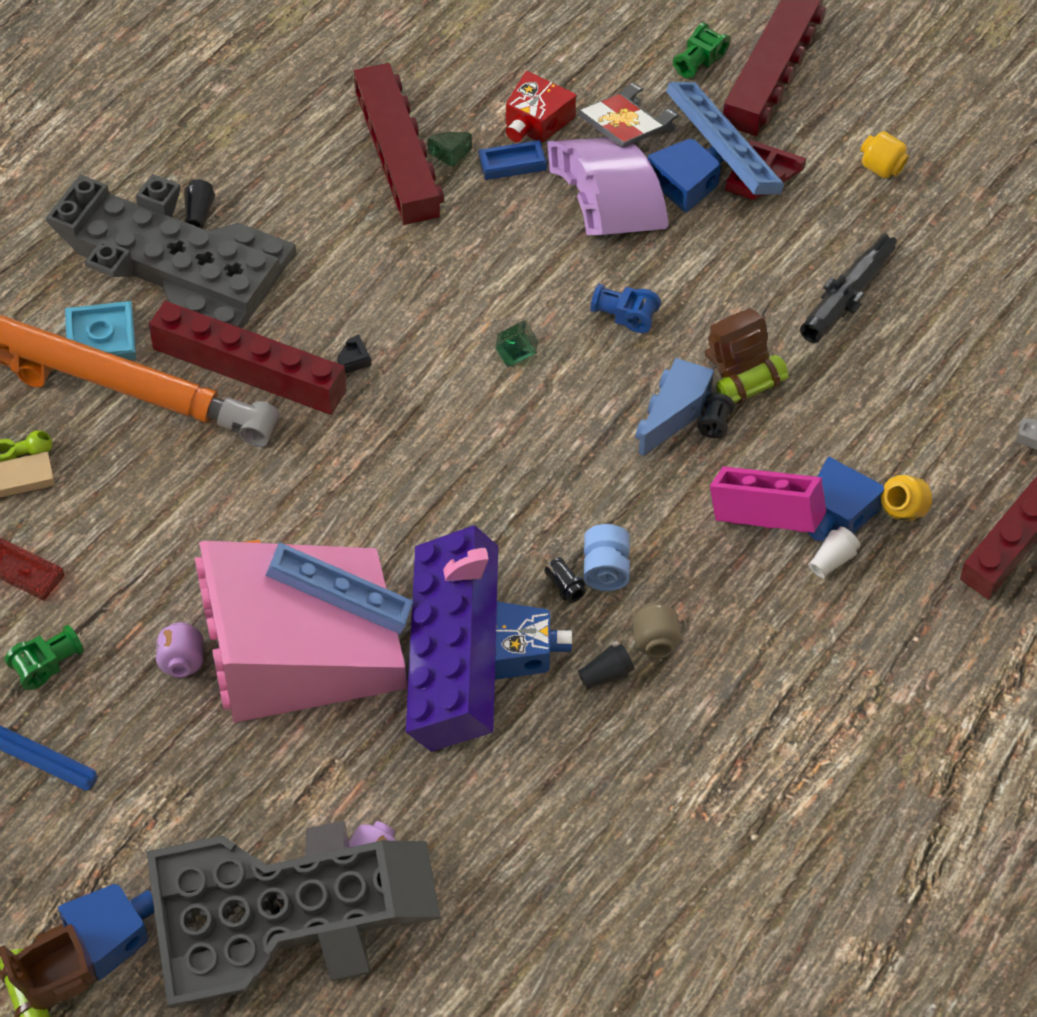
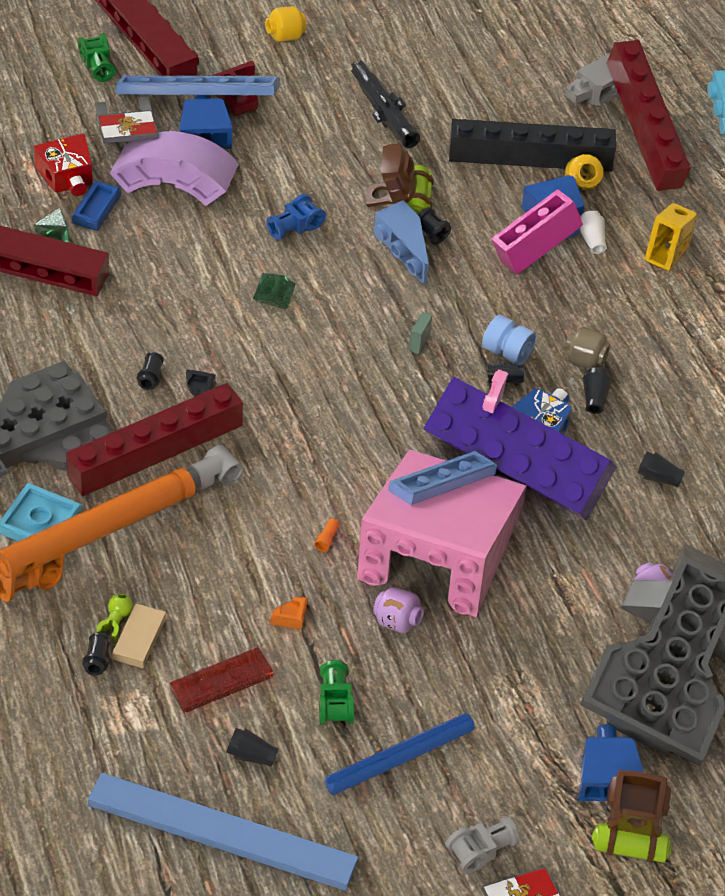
camera: 60 degrees left, 5 degrees down
(126, 573) = (291, 613): none -> orange tile
(334, 310) = (149, 376): none -> black pin
(540, 776) = (658, 469): none -> black cone
(556, 482) = (420, 333): none -> sand green tile
(886, 619) = (673, 226): none -> yellow torso
(908, 435) = (528, 144): none -> black brick

